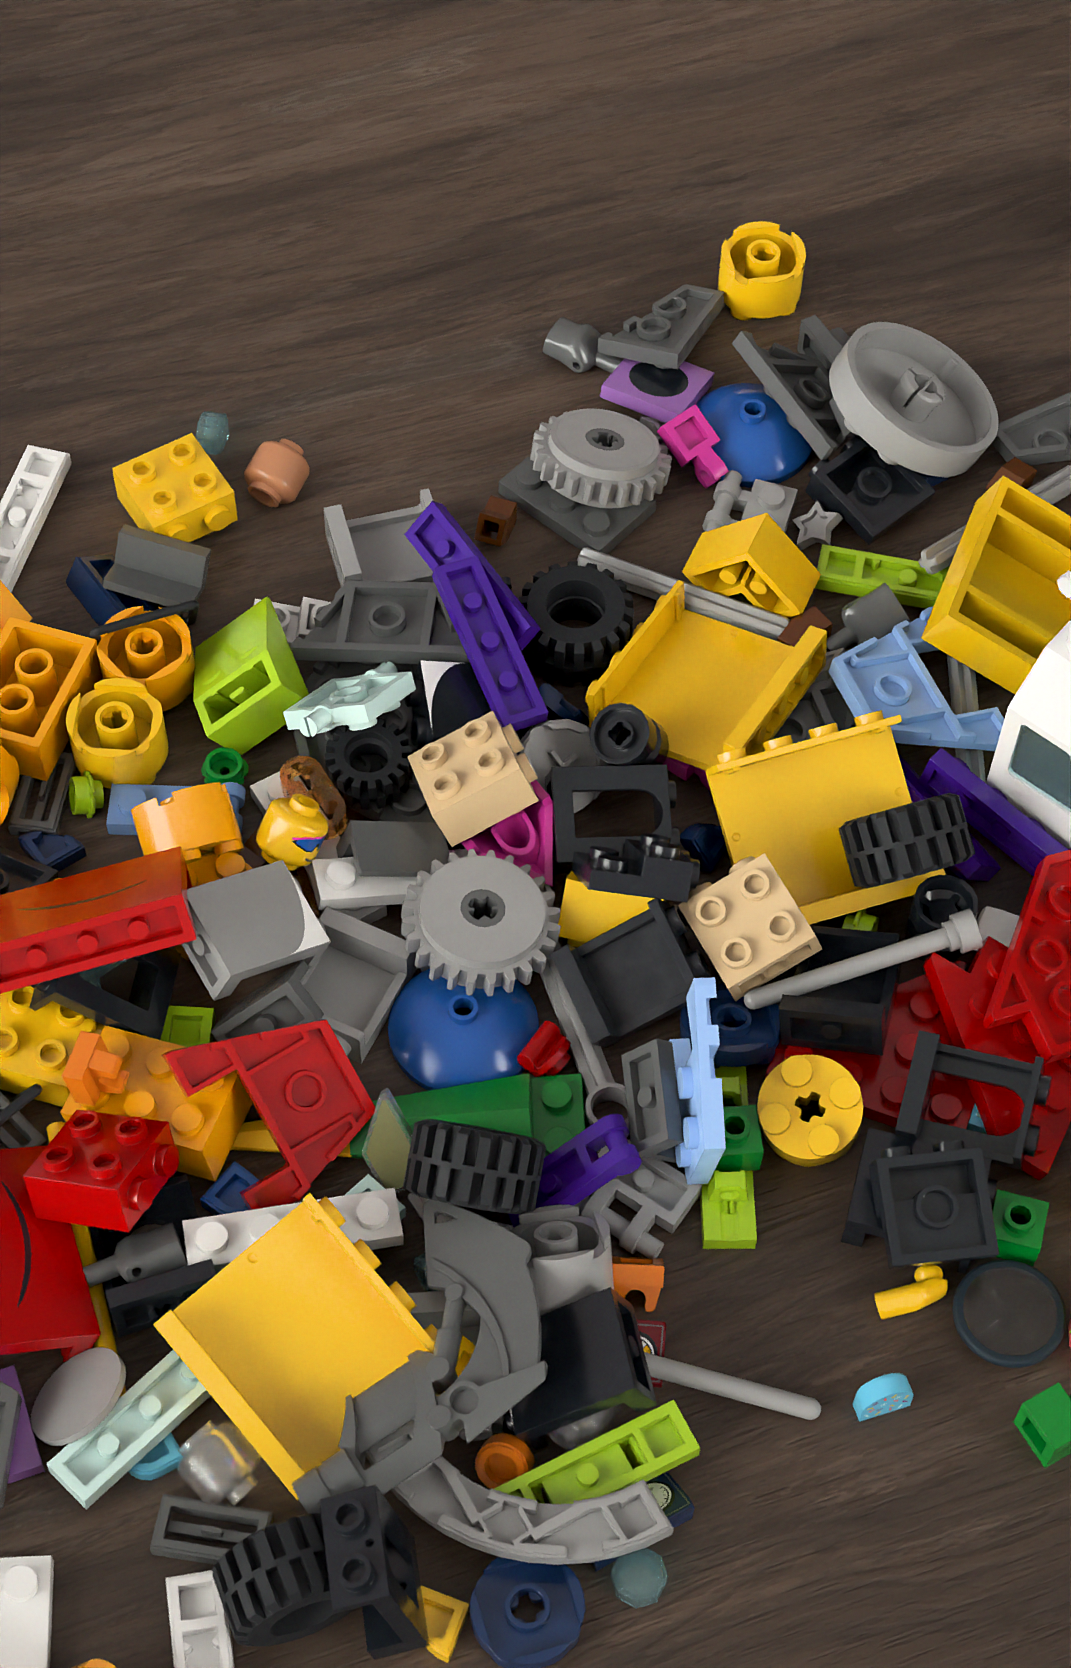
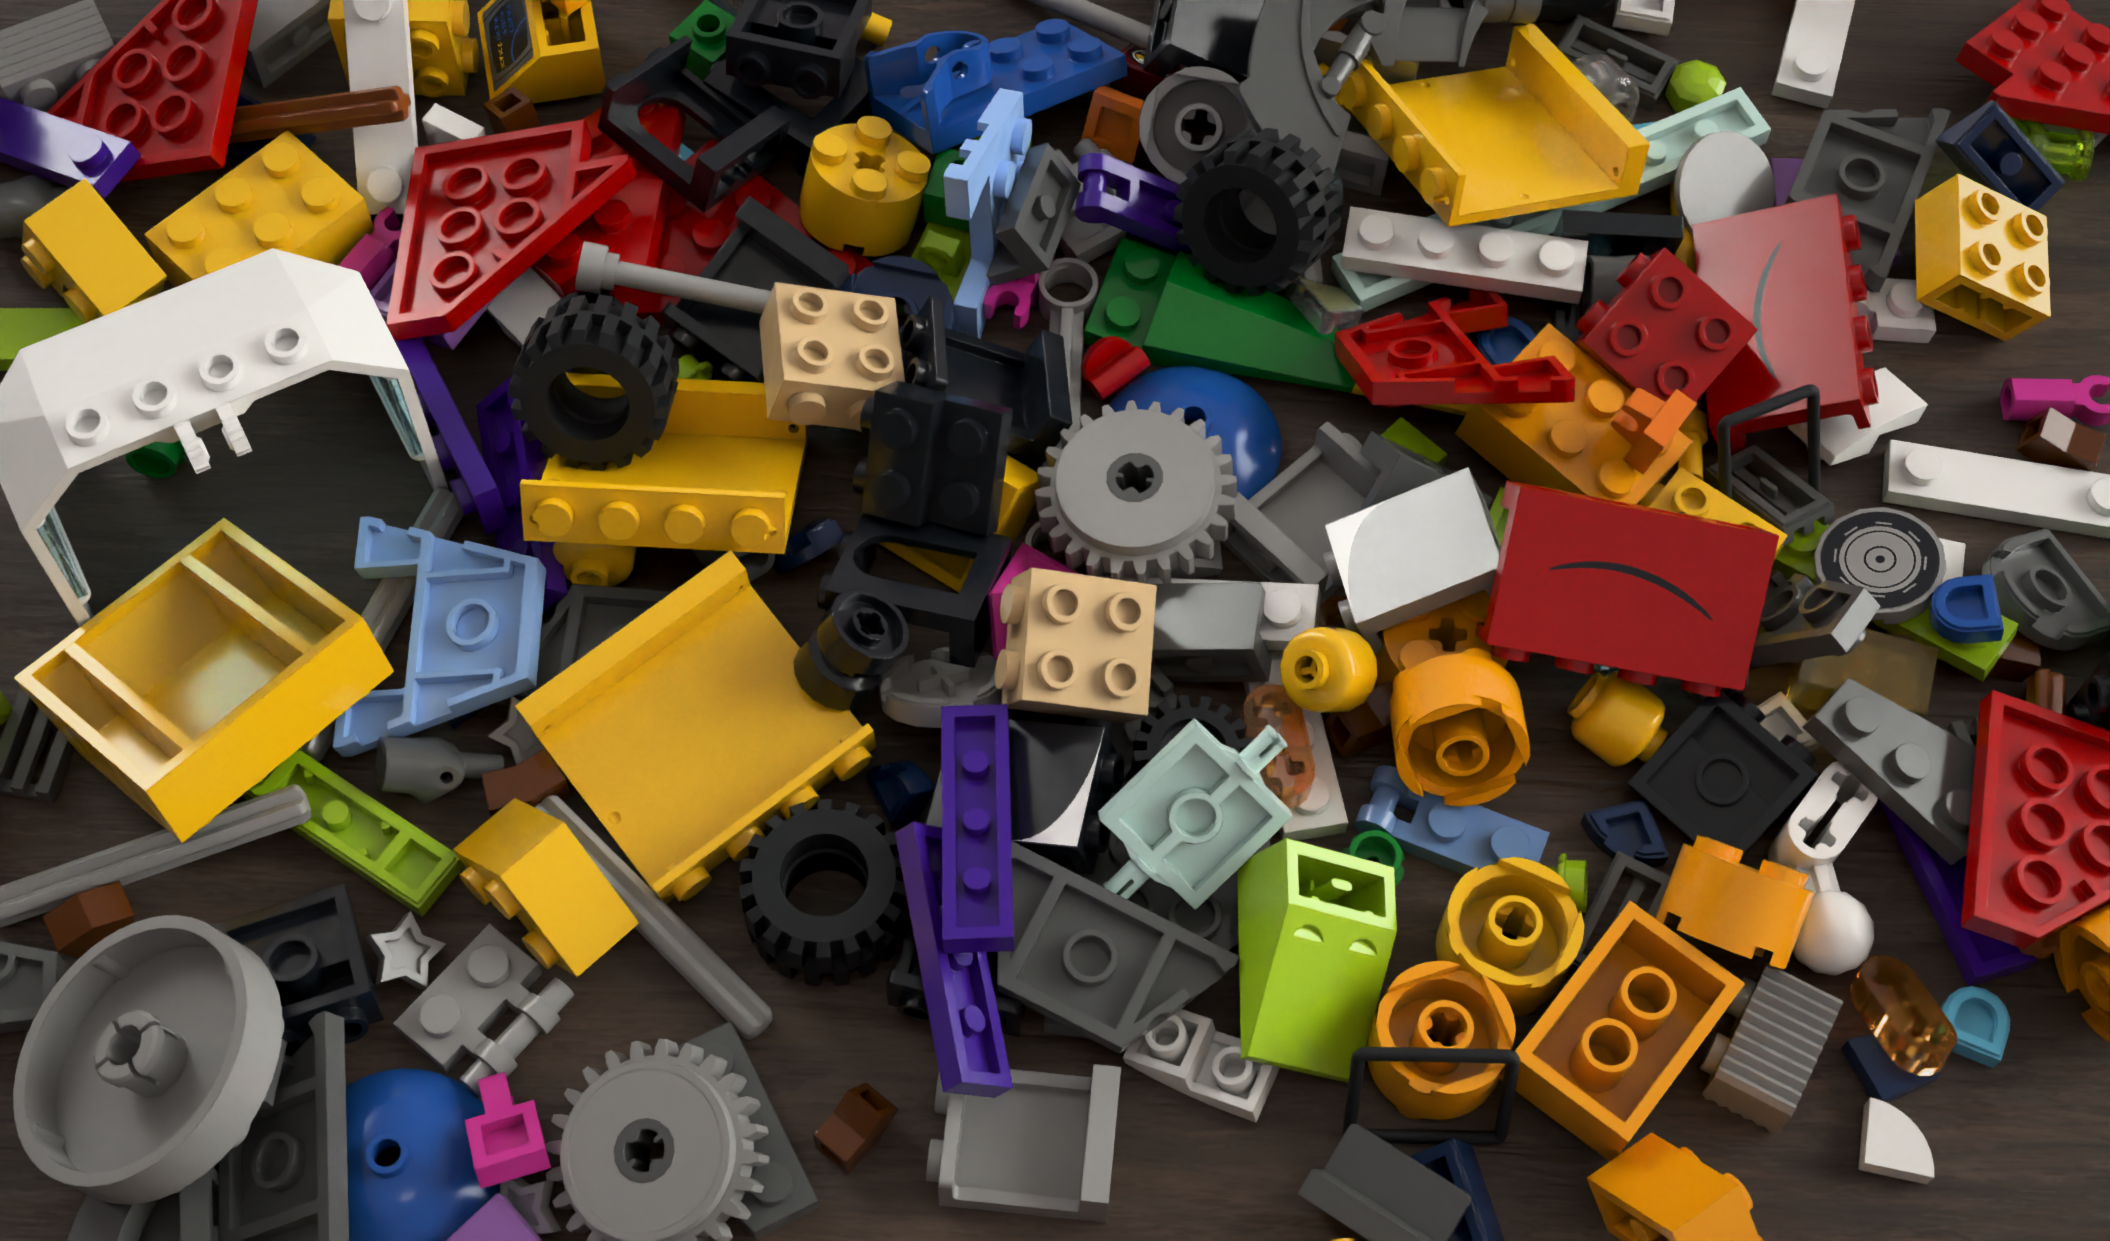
camera: 160 degrees left, 5 degrees up
(127, 1526) = (1694, 84): none -> lime tile
(750, 1253) = (944, 98): none -> blue plate

